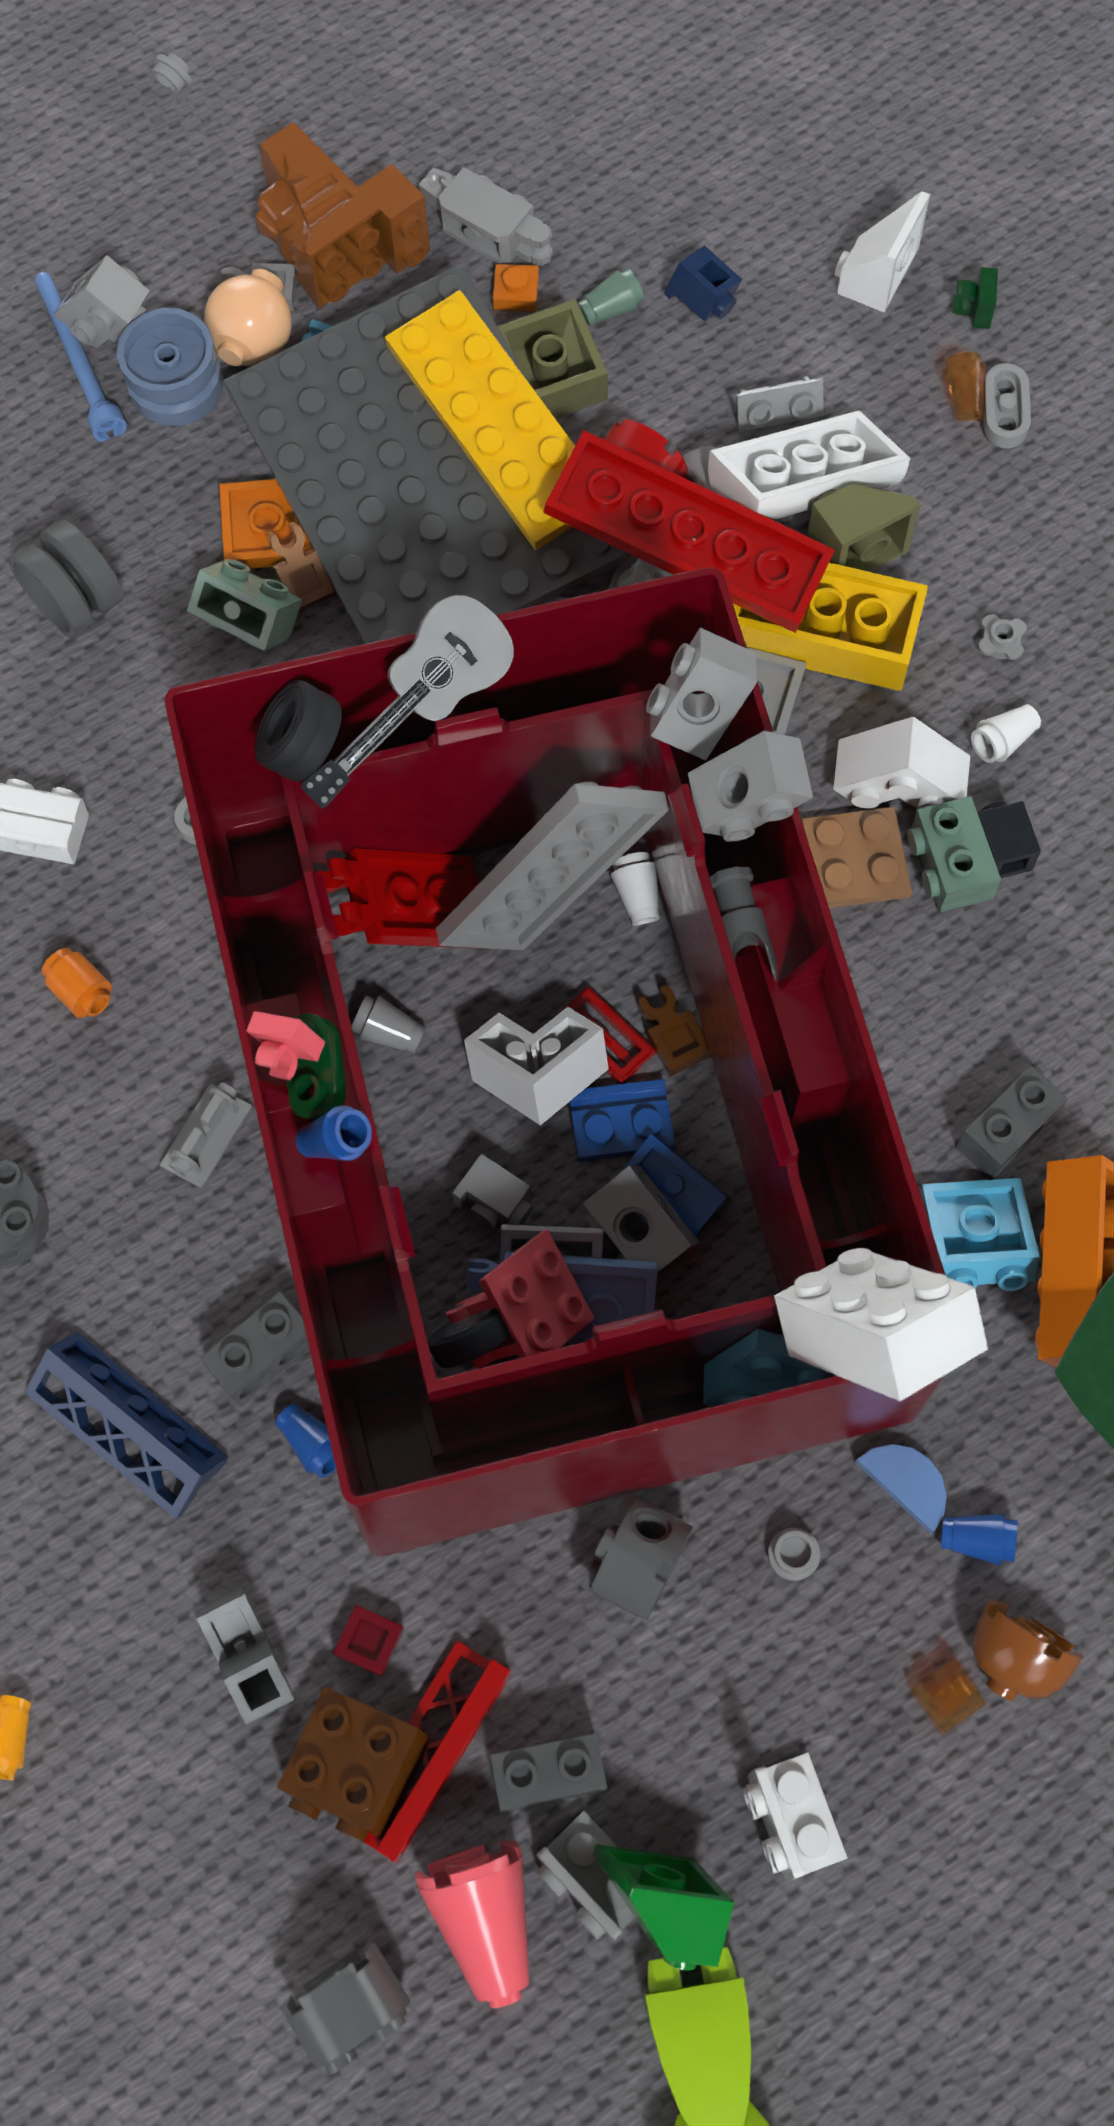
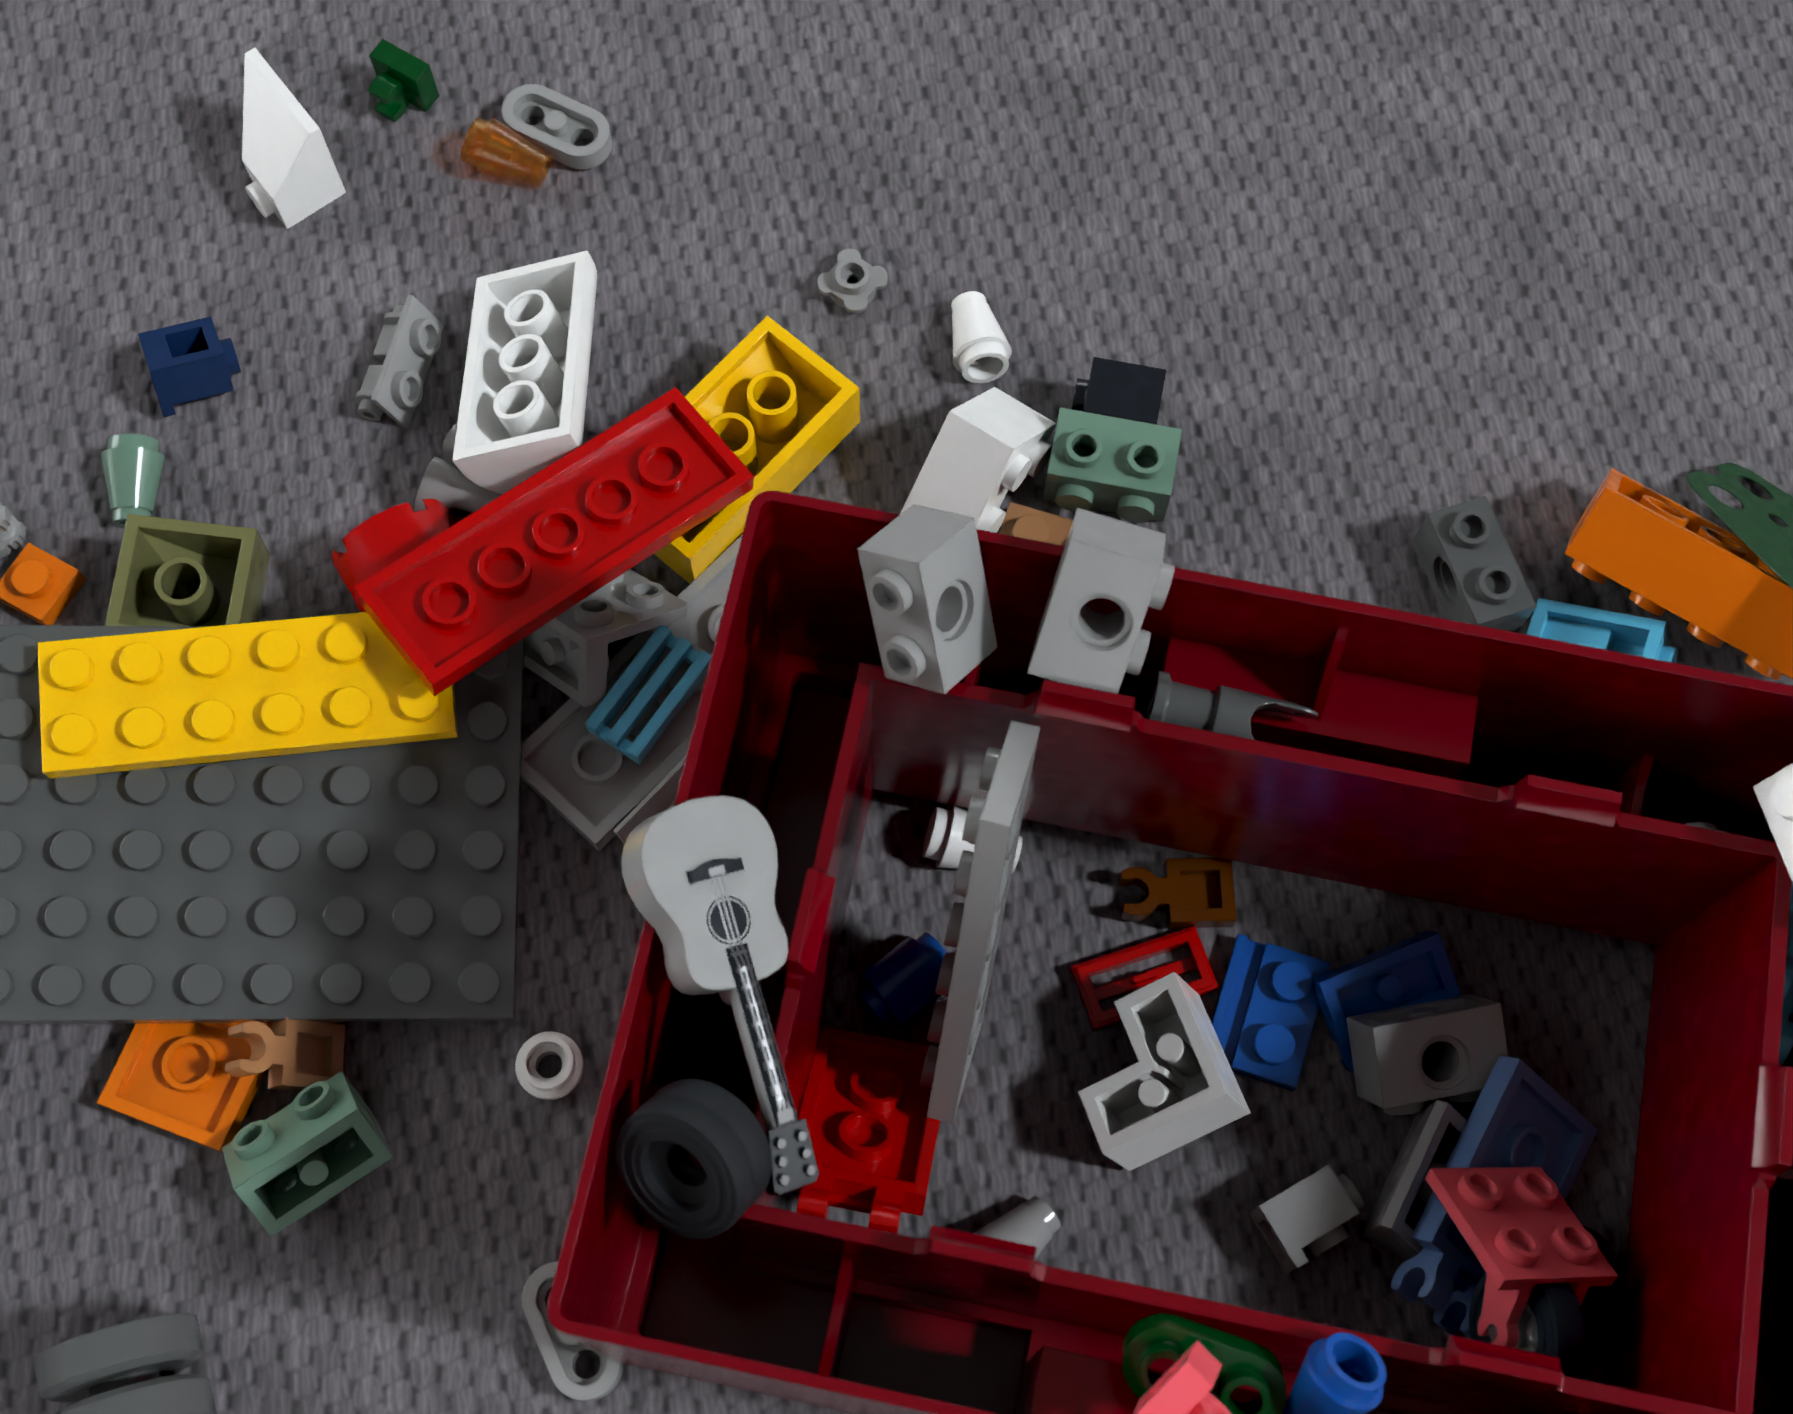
camera: 65 degrees left, 0 degrees up
(864, 525) = (636, 346): olive slope -> none

